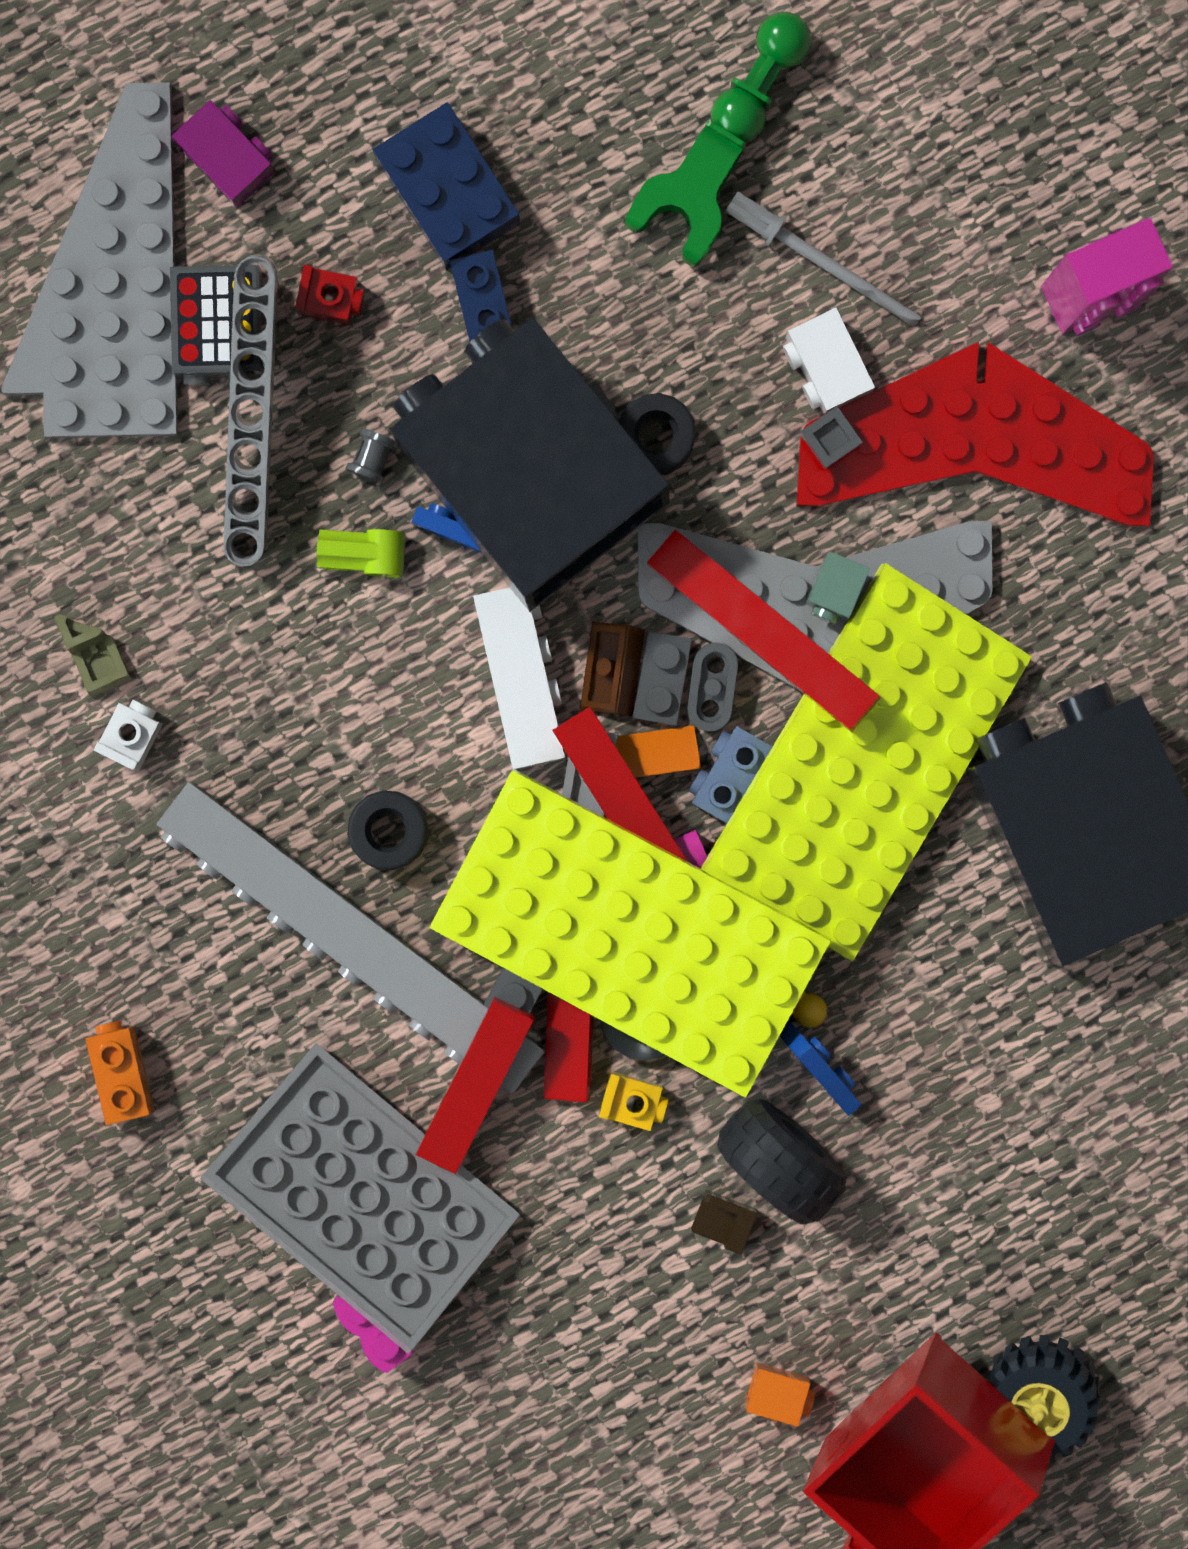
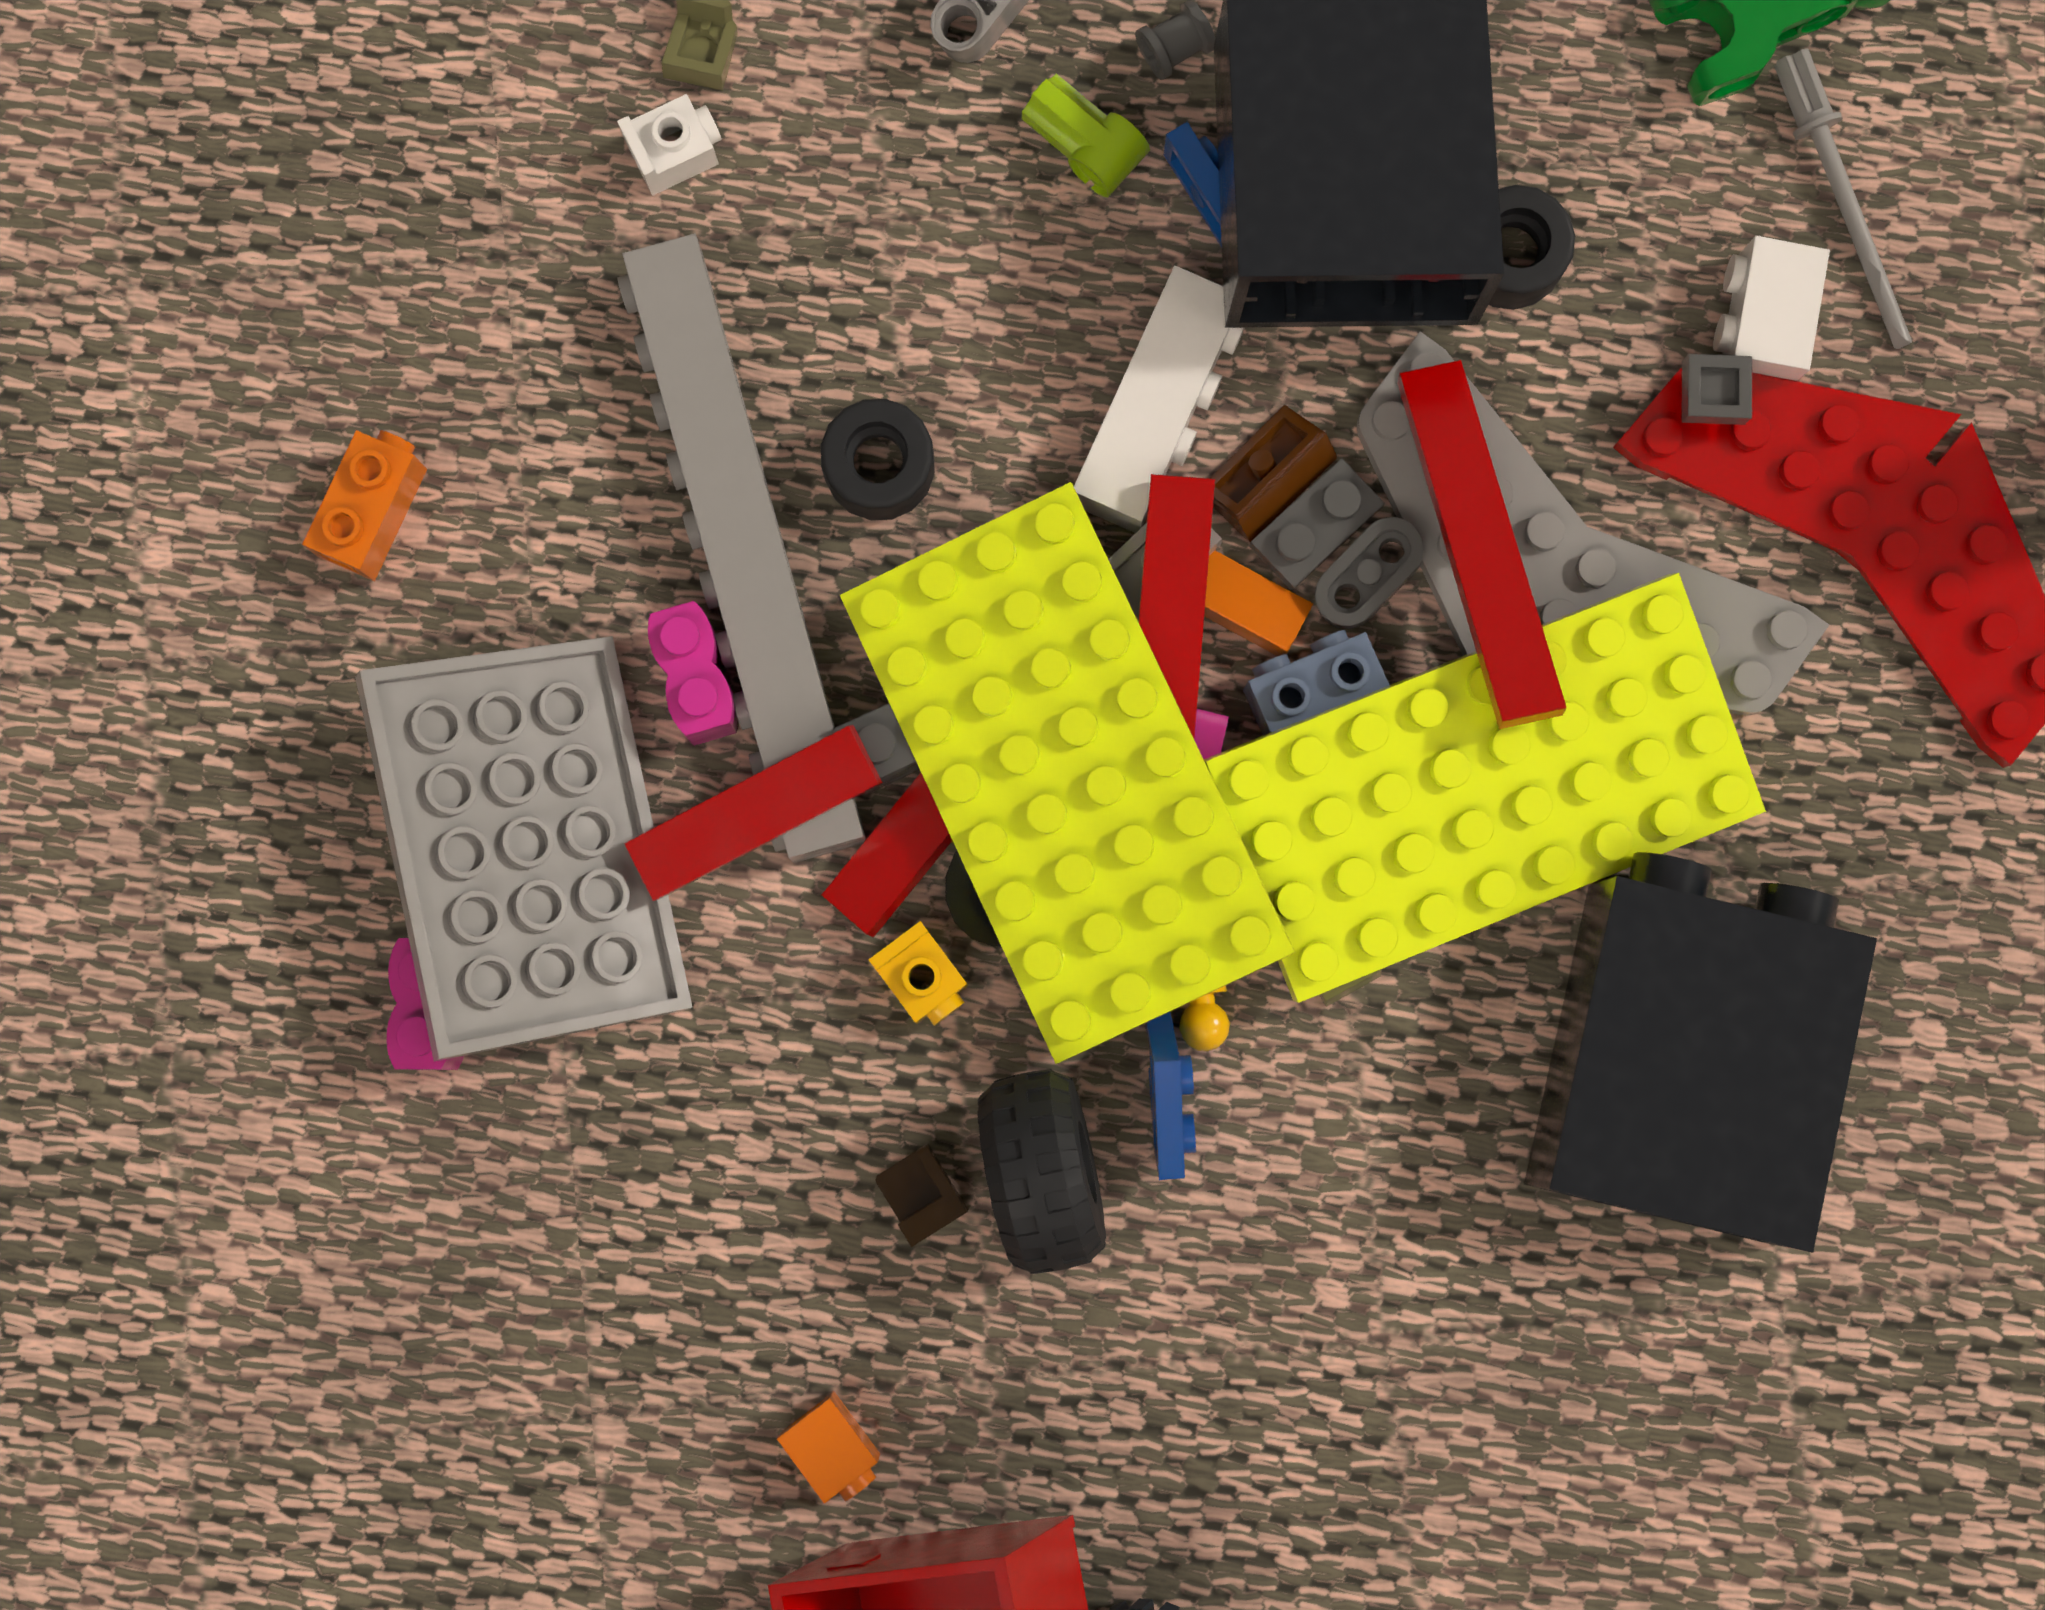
camera: 35 degrees right, 5 degrees down
(369, 1023) = (695, 686): none -> dark pink brick
(836, 588) = (1600, 559): sand green brick -> none

